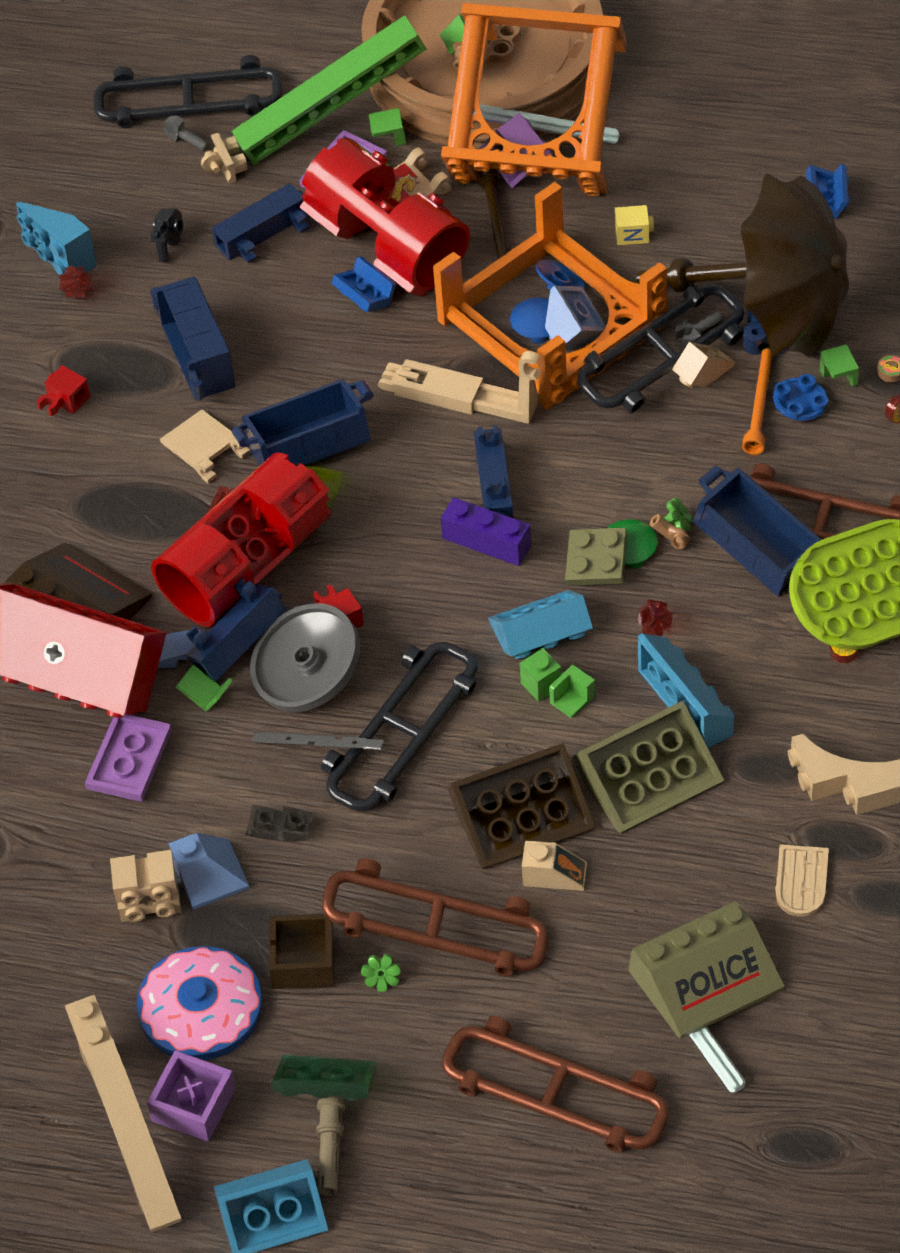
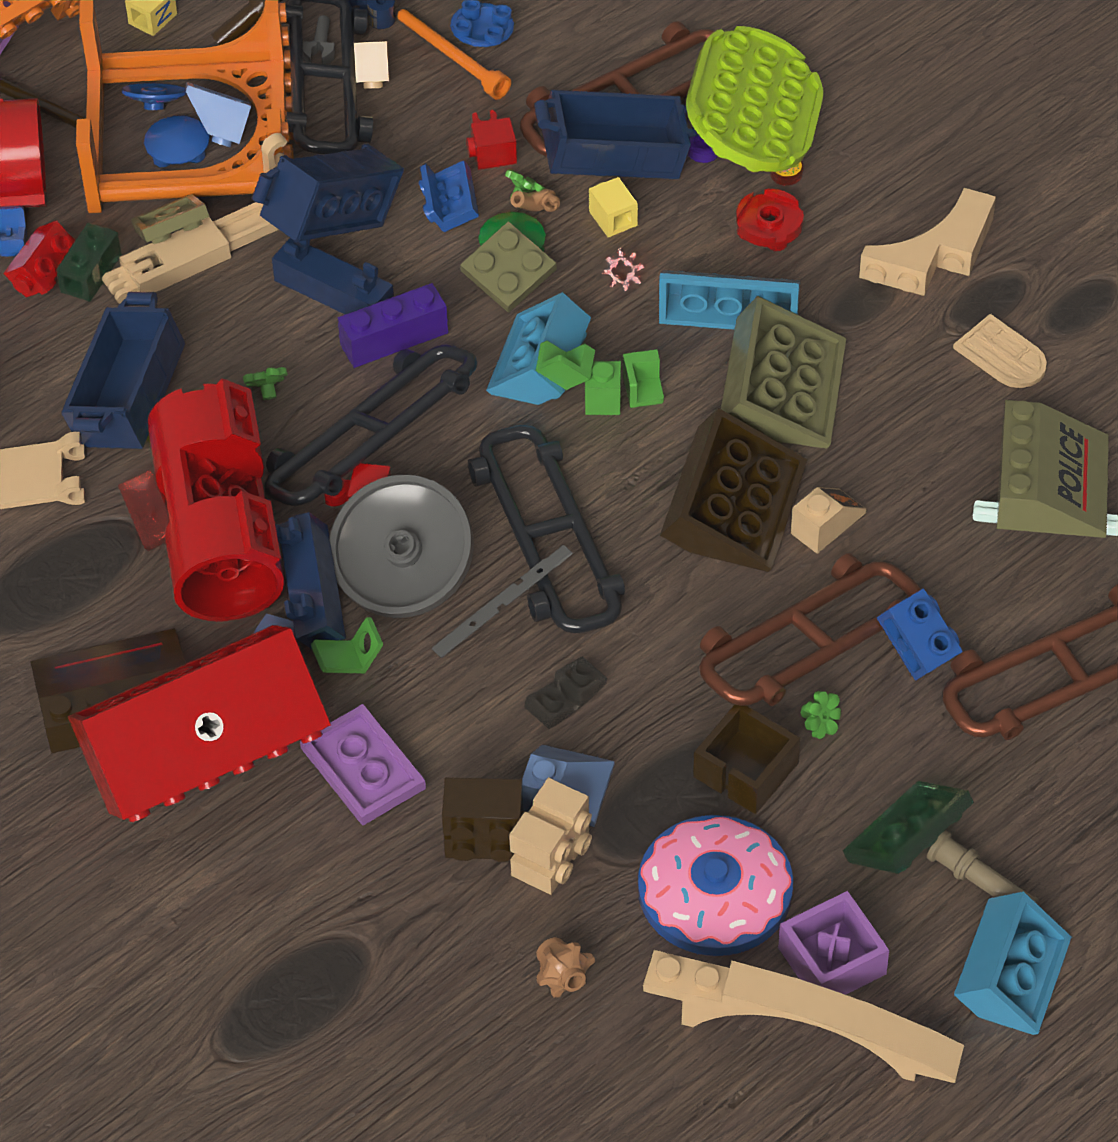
camera: 55 degrees left, 0 degrees up
(62, 960) = (562, 966): none -> medium nougat rock
(124, 832) = (480, 817): none -> dark brown piece
(324, 556) = (407, 366): none -> black bar
(364, 323) = (37, 261): none -> red brick
(380, 501) = (266, 381): none -> bright green plant
(390, 346) = (87, 261): none -> clear green brick
(458, 359) = (179, 214): none -> olive plate
(489, 981) = (920, 633): none -> blue brick
(526, 636) = (563, 367): none -> bright green panel
(539, 419) = (328, 193): none -> dark blue container
(625, 483) = (449, 195): none -> blue bracket
(692, 468) = (492, 142): none -> red brick
(706, 576) = (613, 207): none -> light yellow brick
(781, 681) = (765, 233): none -> red plate

